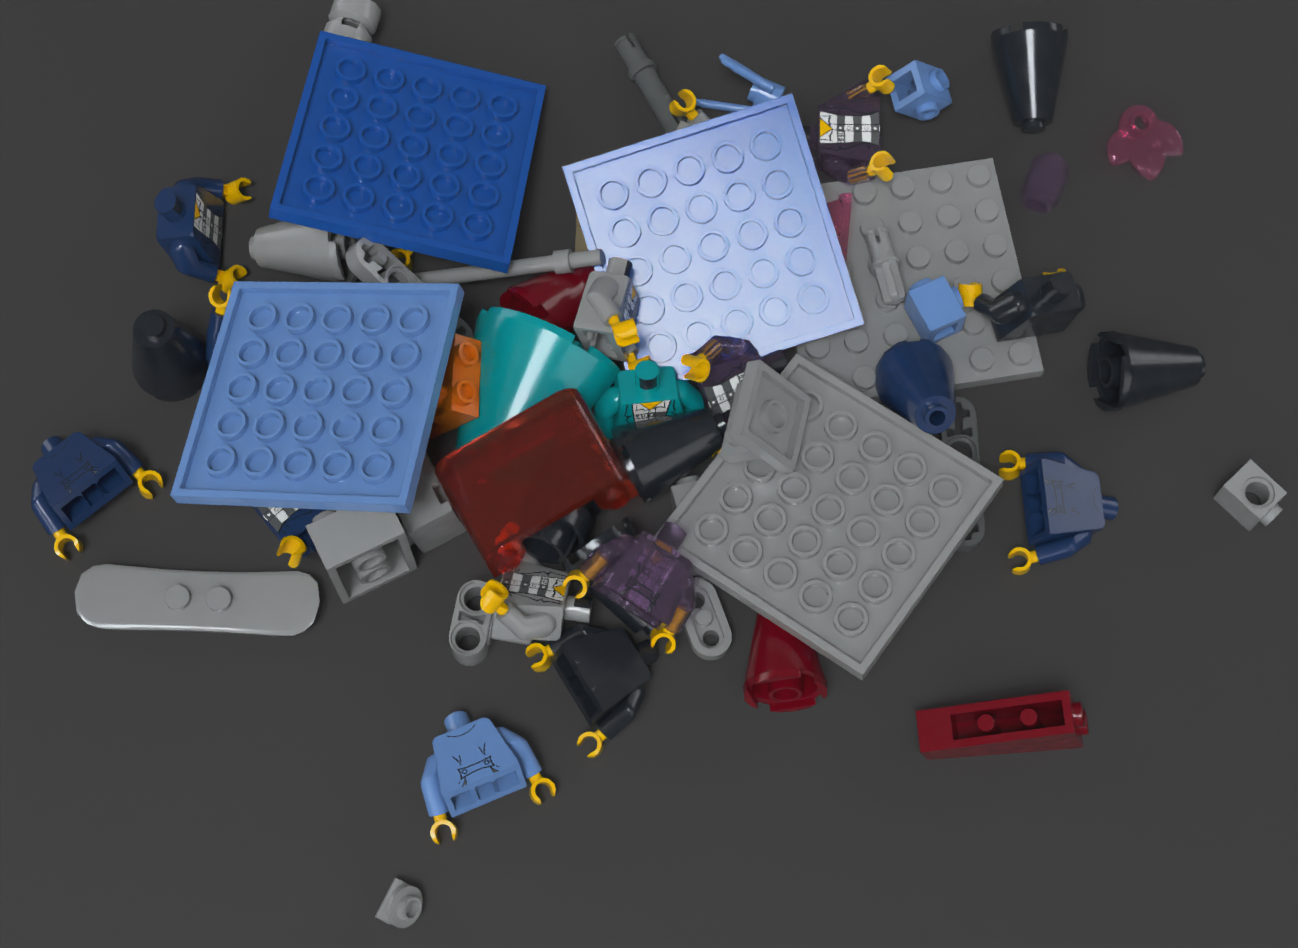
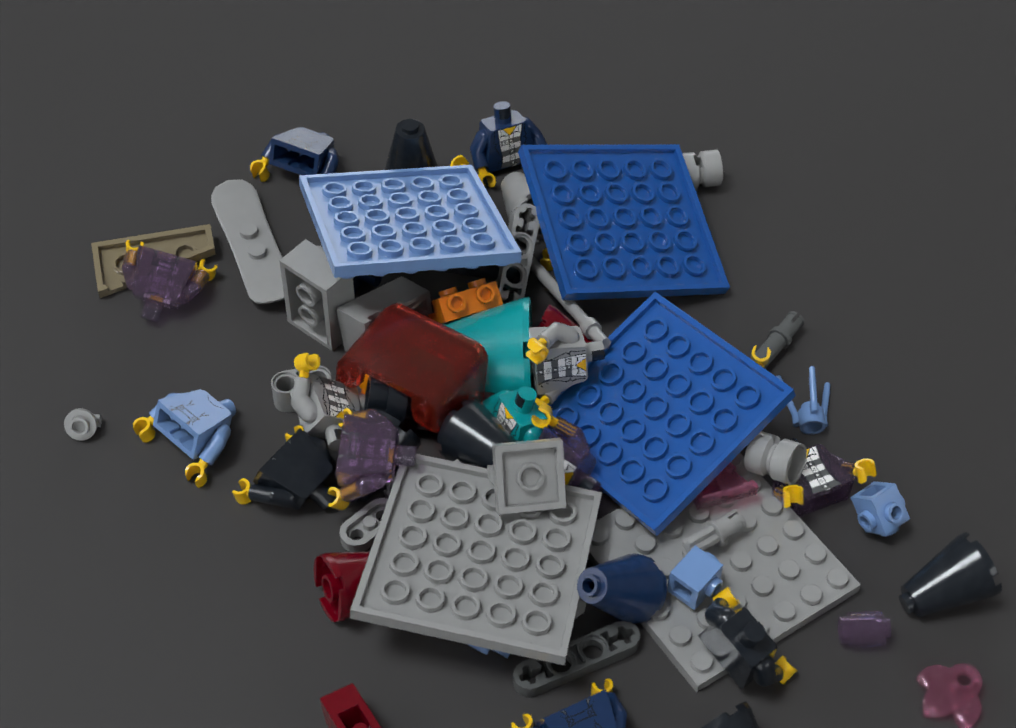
camera: 65 degrees right, 20 degrees down
(153, 751) = (108, 255): none -> dark tan wing
(218, 732) = (162, 279): none -> clear purple torso
(837, 155) = (775, 457): none -> light grey wheel

